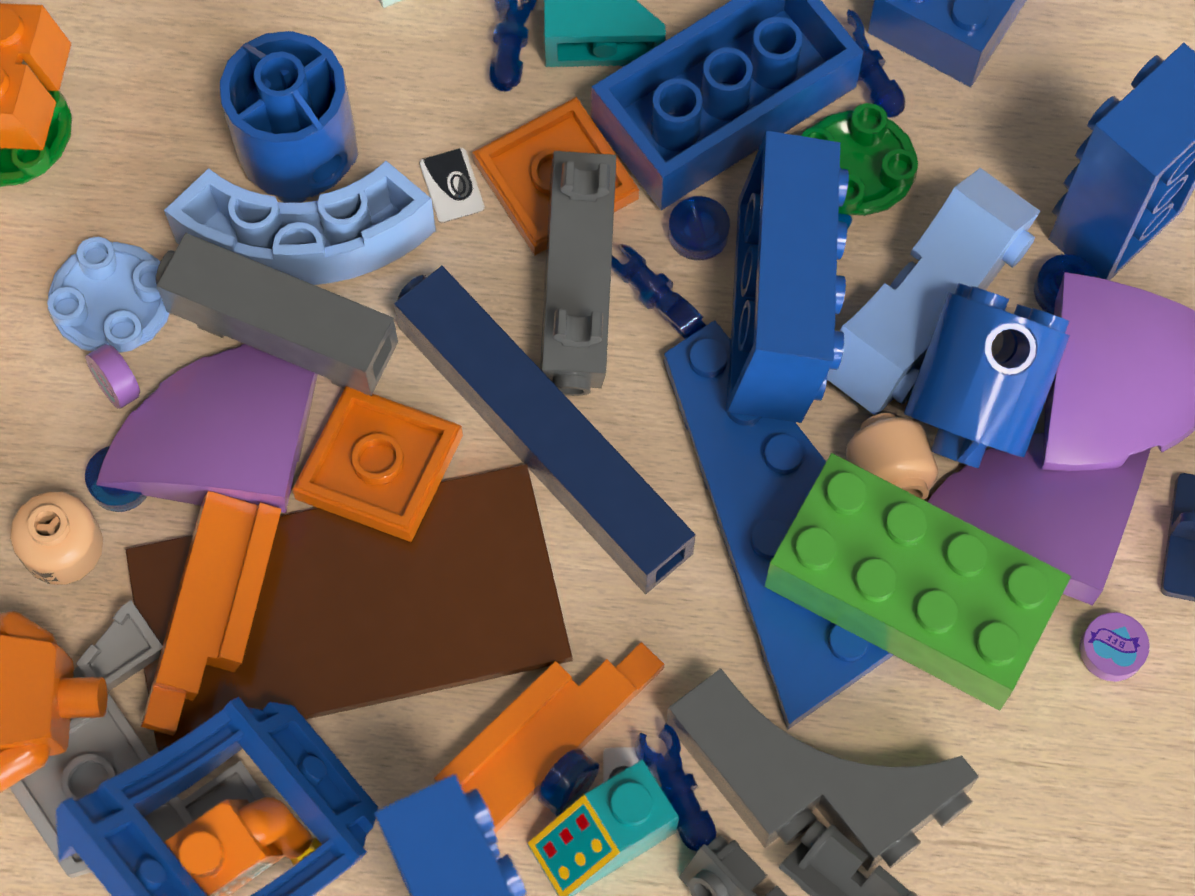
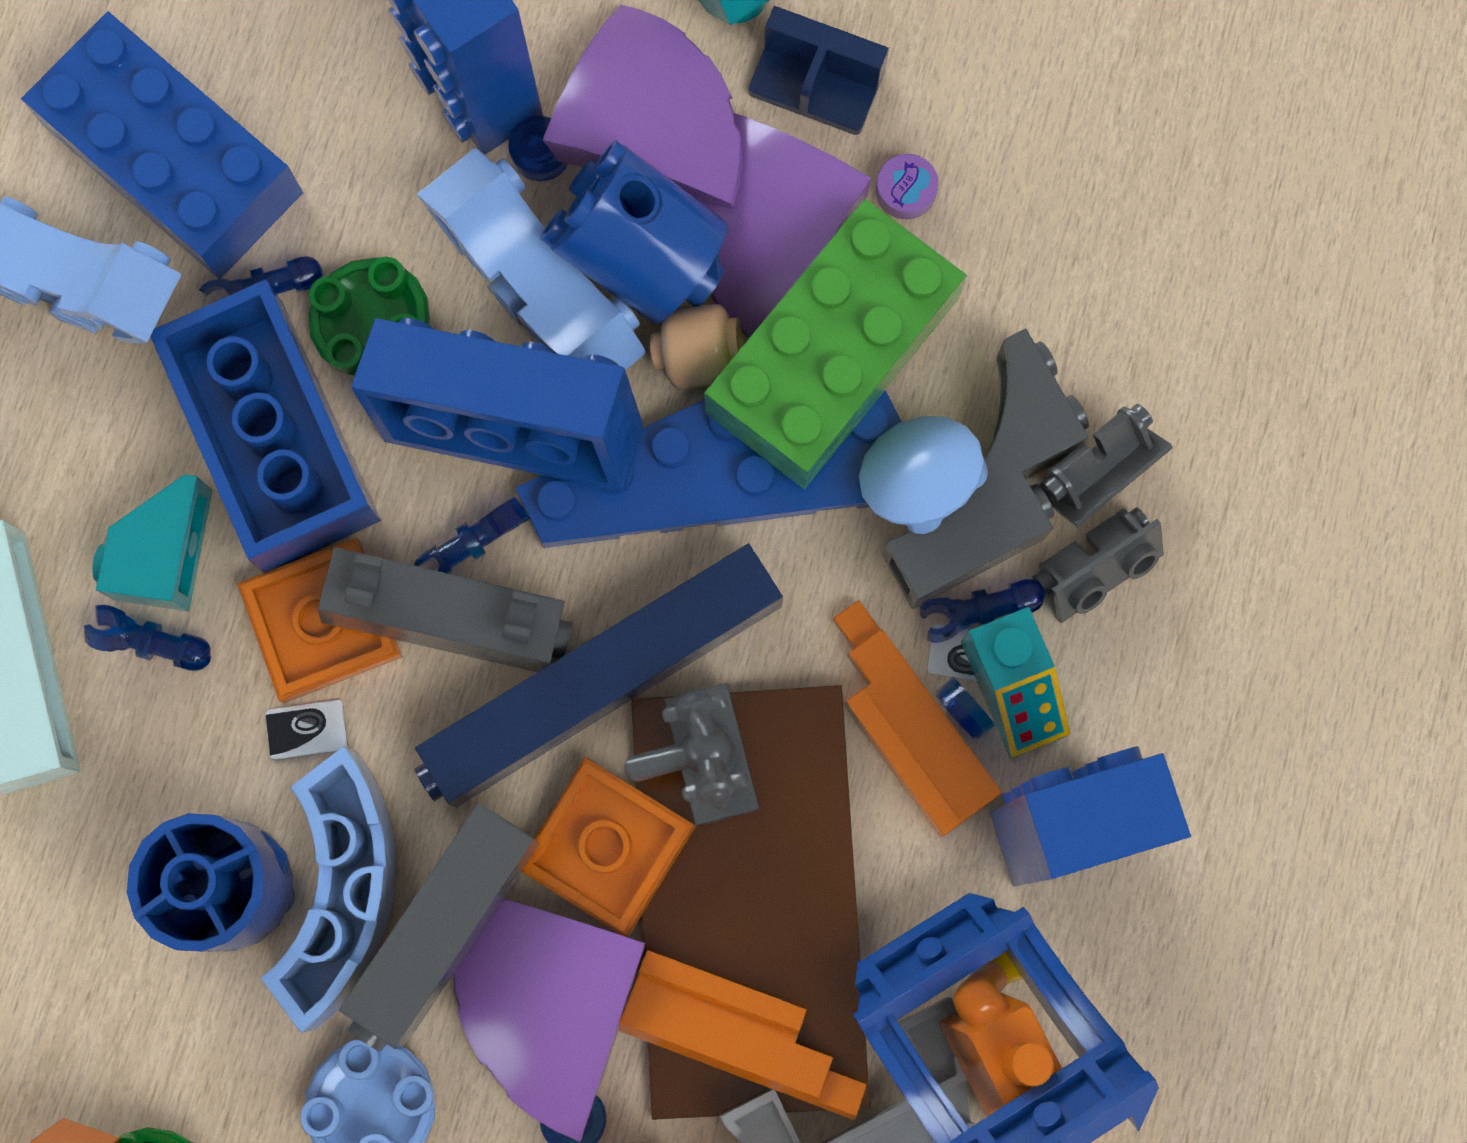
camera: 80 degrees left, 10 degrees up
(113, 375) = (463, 1111): medium lavender tile -> none
(481, 533) = (707, 752): none -> dark grey piece
(698, 228) = (408, 486): clear blue tile -> none
(801, 693) = (922, 472): none -> light blue dish

